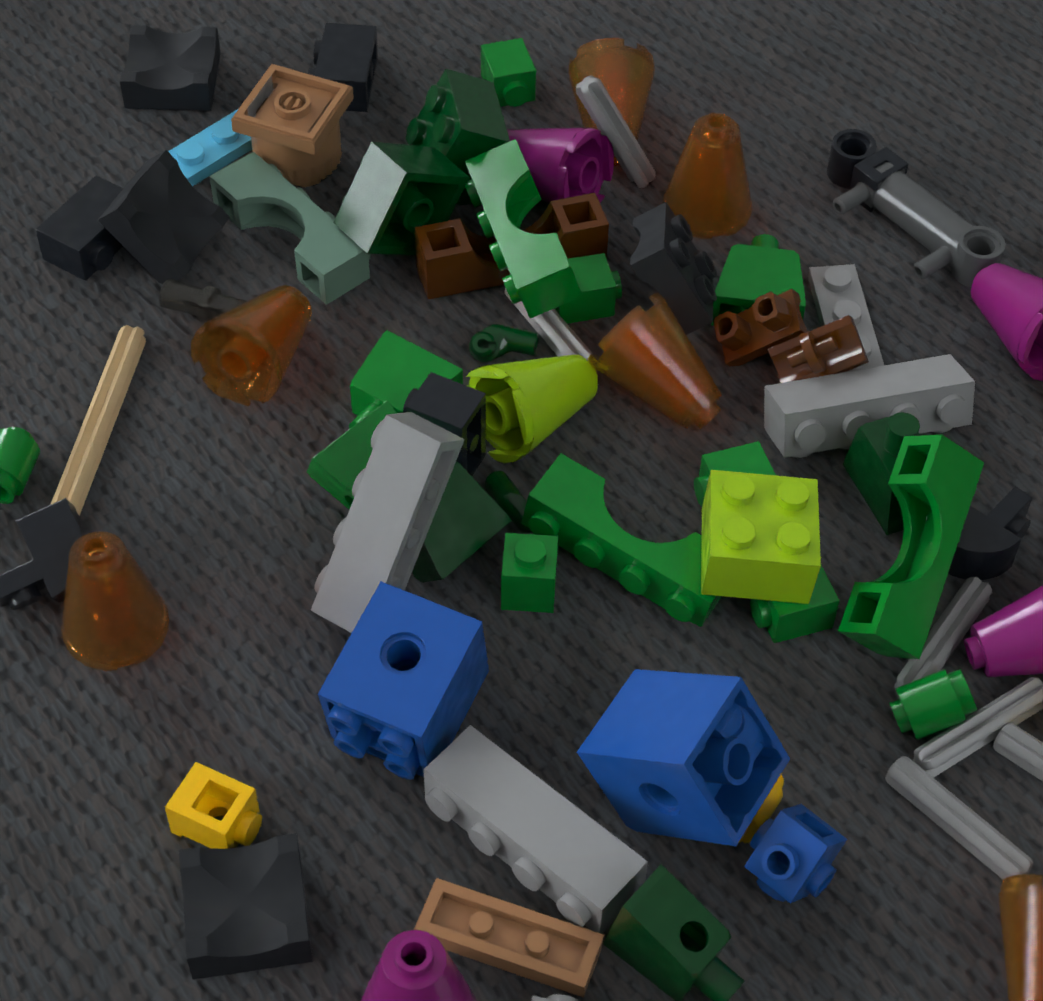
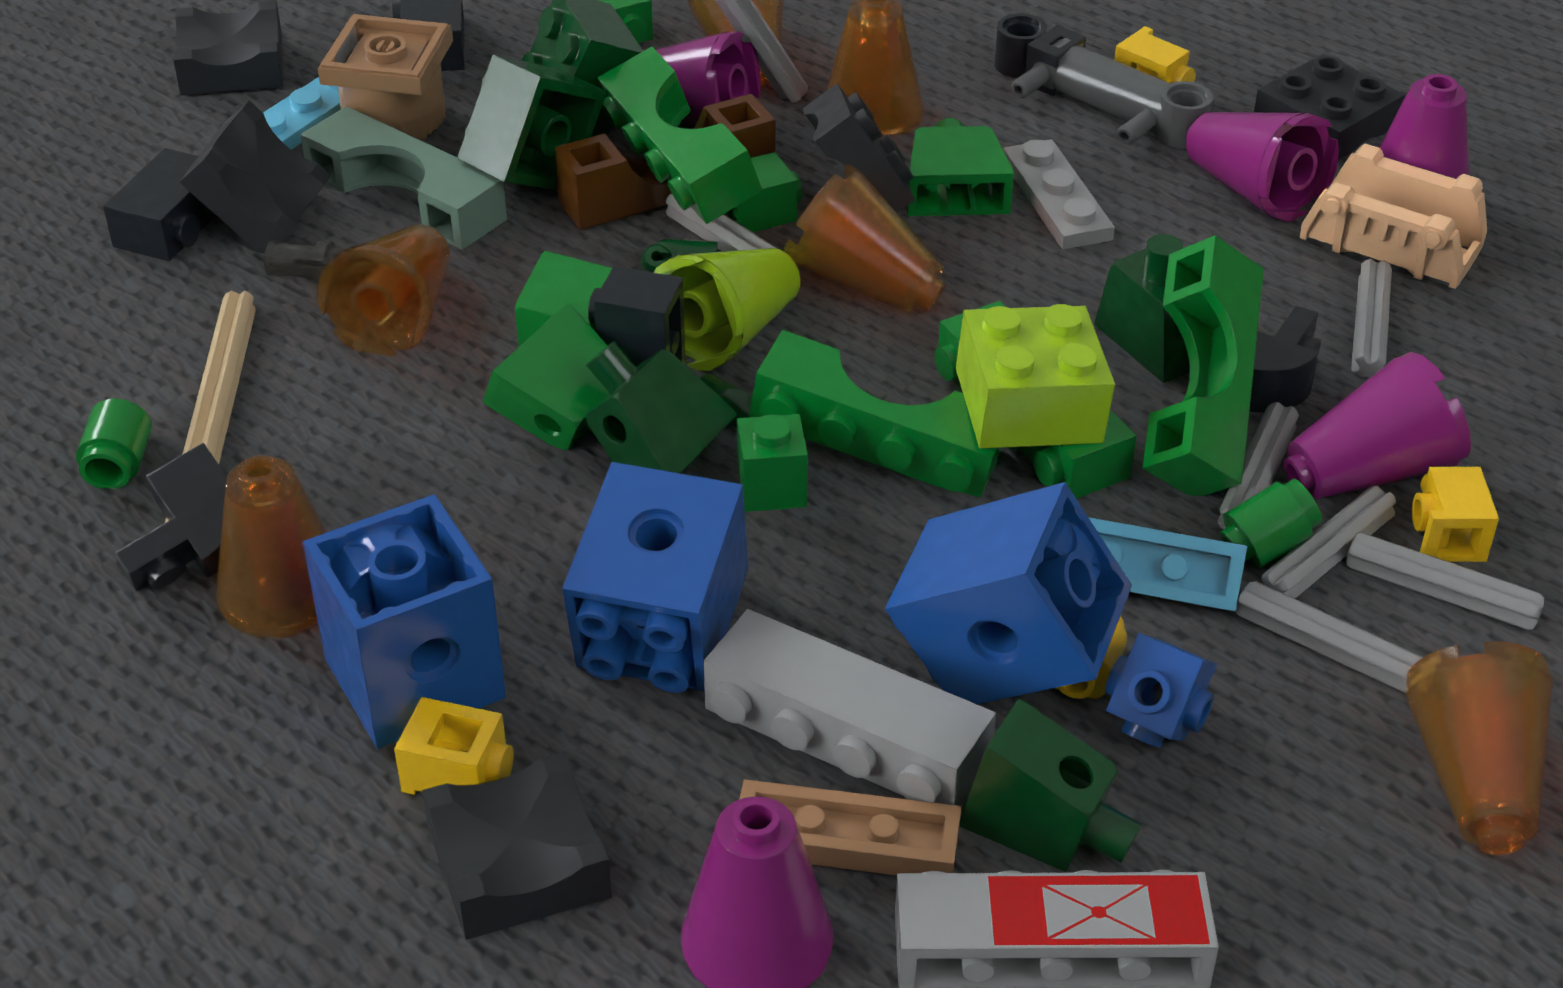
camera: 10 degrees left, 10 degrees down
(194, 690) = (405, 615): none -> blue brick
(387, 516) = (599, 406): light grey brick -> none
(762, 326) = (970, 202): reddish brown hips -> none
(820, 352) = (1041, 215): reddish brown hips -> none
(825, 722) = (1176, 564): none -> medium azure plate
(829, 409) = (1075, 262): light grey brick -> none
(966, 194) = (1155, 57): none -> yellow brick

